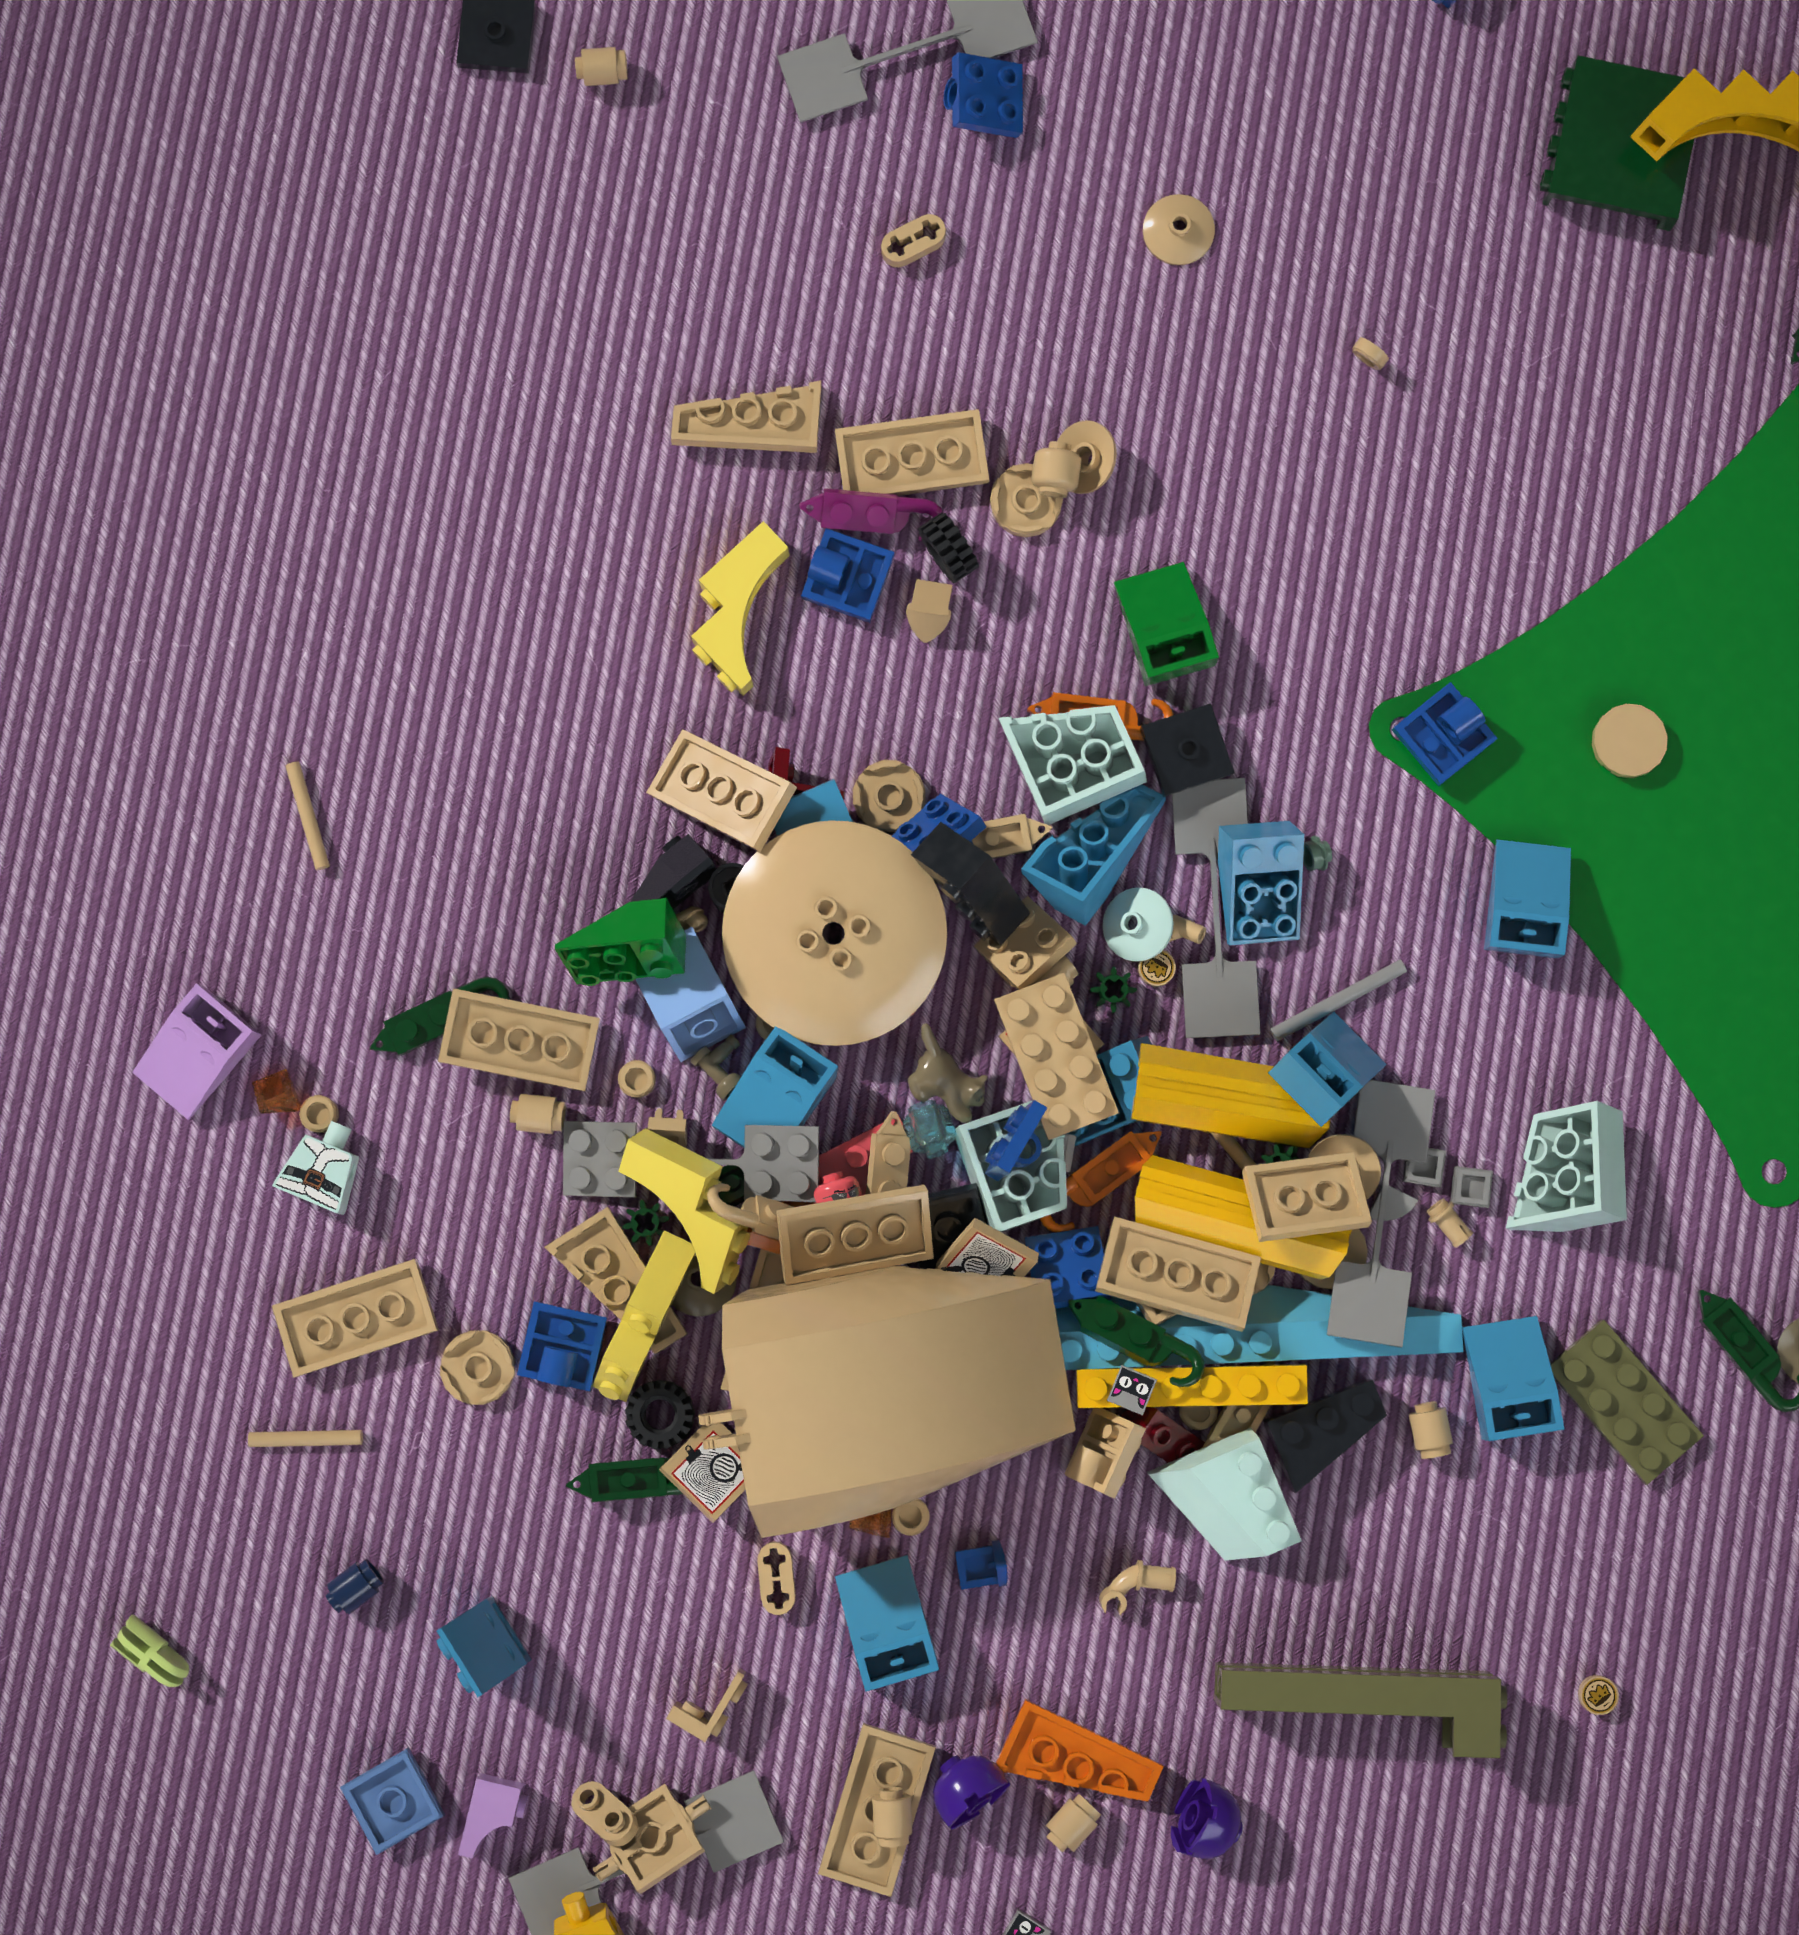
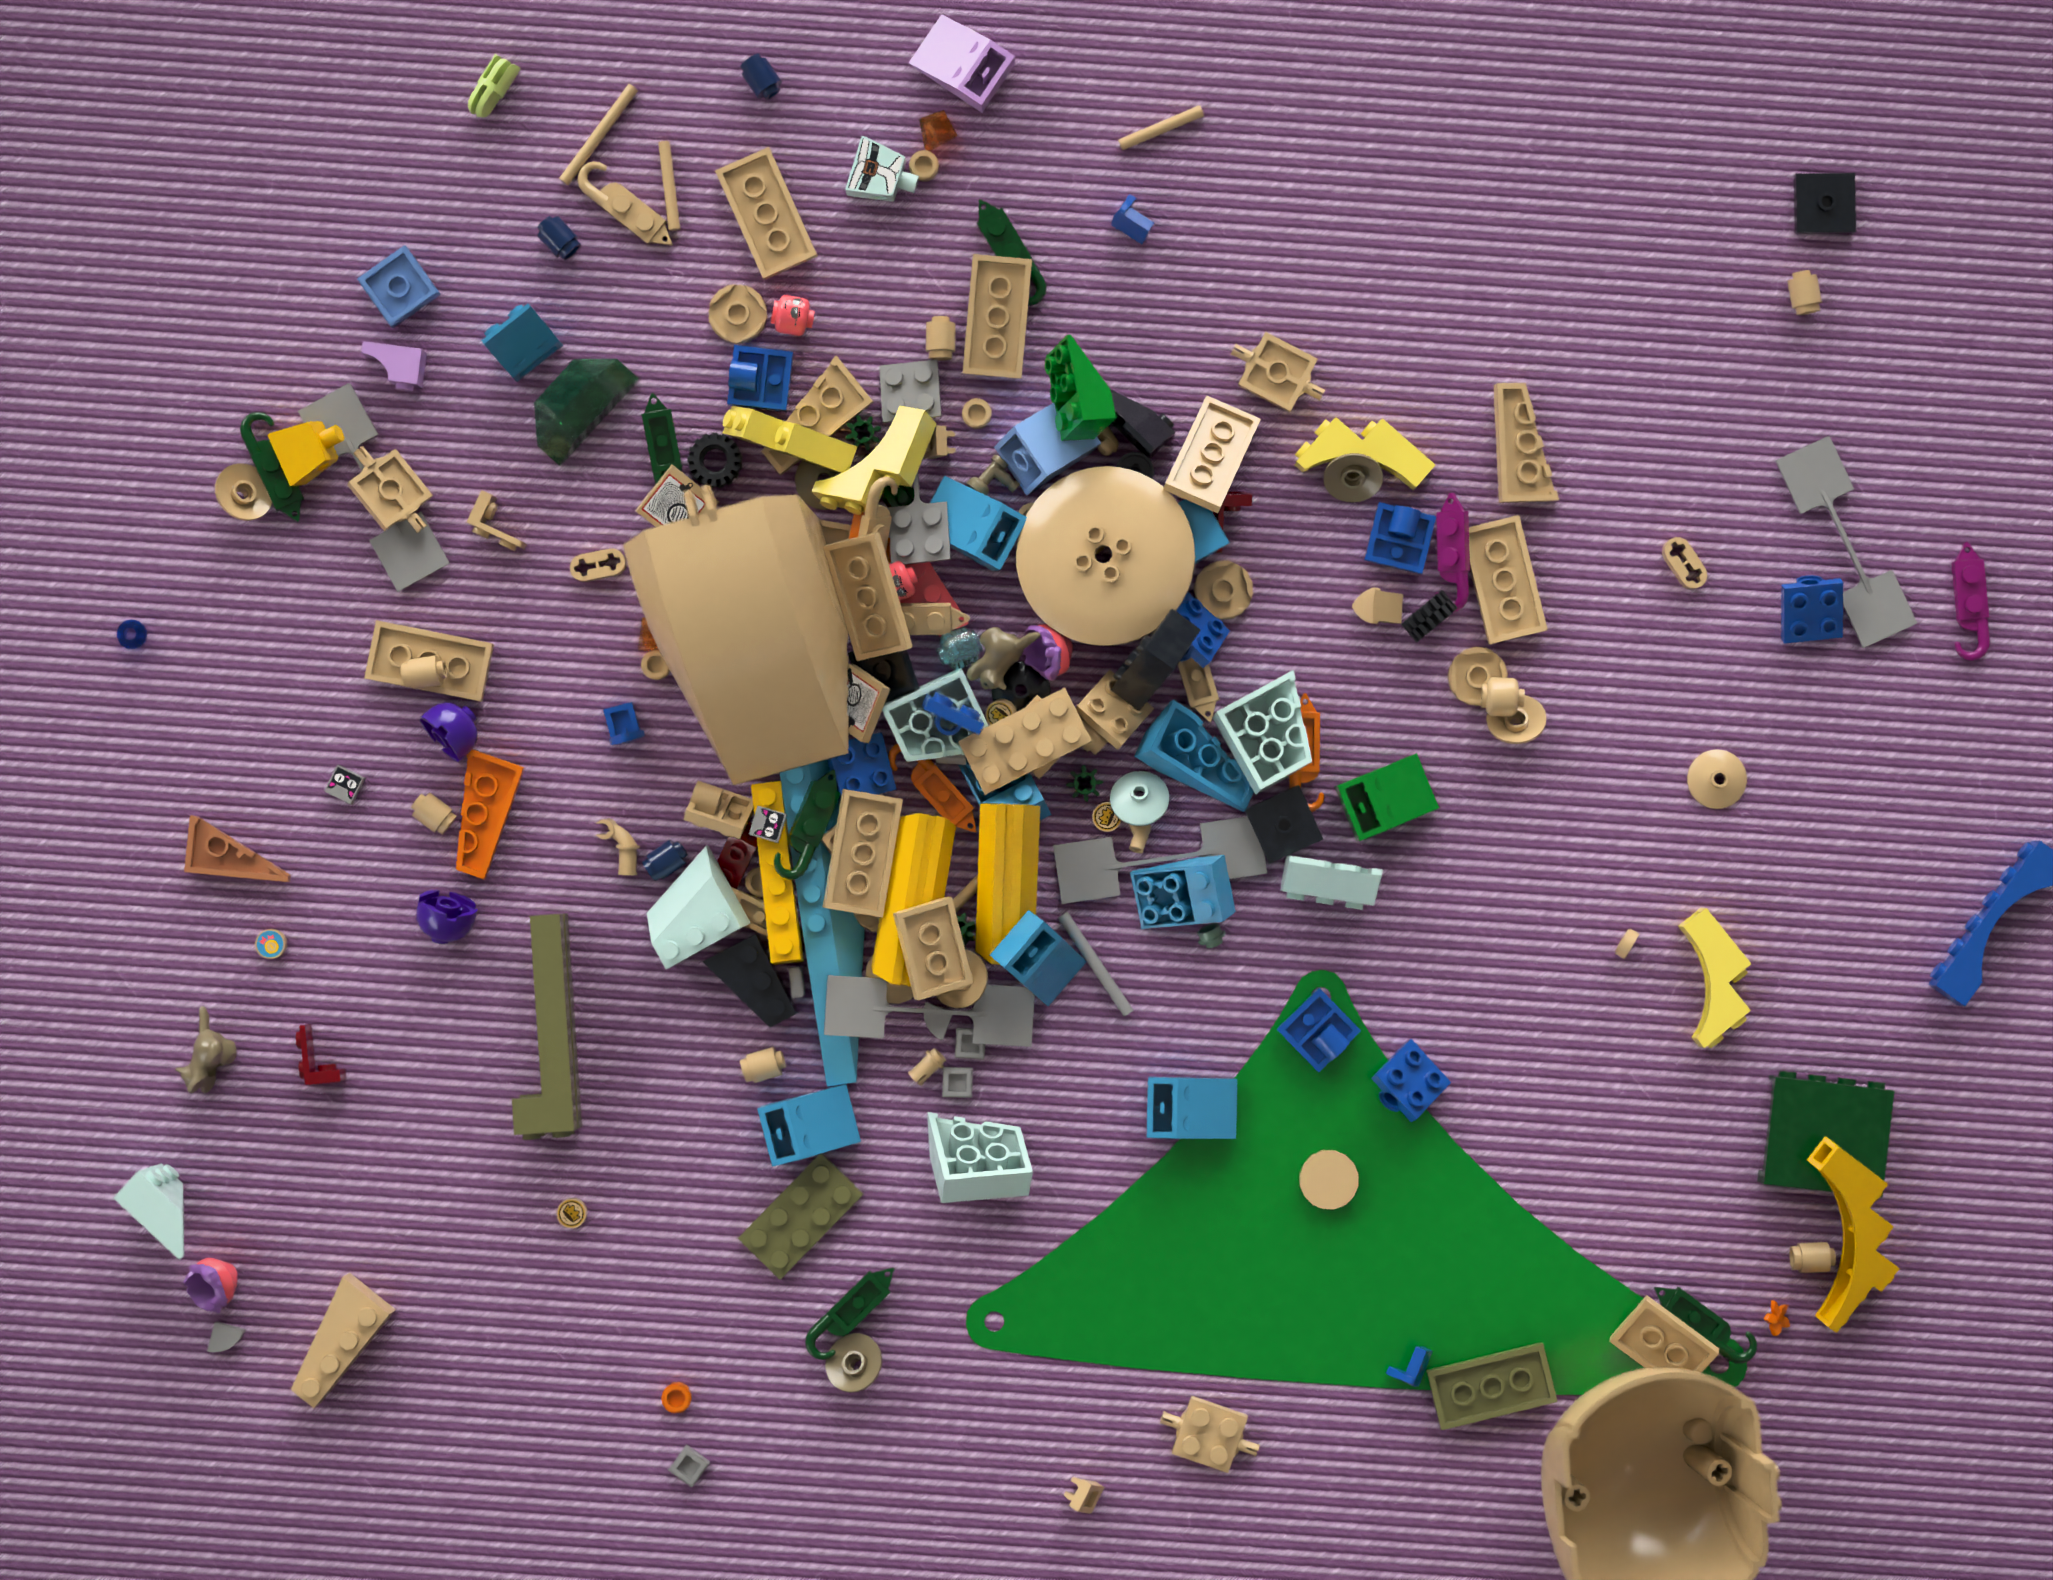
camera: 80 degrees right, 5 degrees up
(182, 1307) = (761, 77): none -> dark blue brick
(229, 1522) = (598, 134): none -> tan bar
(326, 1497) = (625, 207): none -> tan plate
(420, 861) = (1131, 221): none -> blue tile
(488, 1297) = (792, 315): none -> coral head
(568, 1582) = (578, 403): none -> clear green wedge
(602, 1811) = (405, 448): tan plate -> none
(627, 702) = (1277, 372): none -> tan plate
(768, 623) = (1353, 486): none -> dark tan dish
(886, 1623) = (571, 654): dark azure slope -> none
(949, 1015) = (1050, 653): none -> medium lavender hair
(968, 1055) = (1024, 675): none -> black dish
(1013, 1087) = (998, 710): none -> tile
(1160, 1528) = (665, 860): none -> dark blue brick
(1264, 698) = (1330, 882): none -> light aqua wedge
(1329, 1376) = (797, 982): none -> light grey tile
(1406, 246) = (1720, 964): none -> light yellow arch
(1518, 629) = (1409, 1081): none -> blue plate
(1769, 173) = (1812, 1257): none -> tan brick

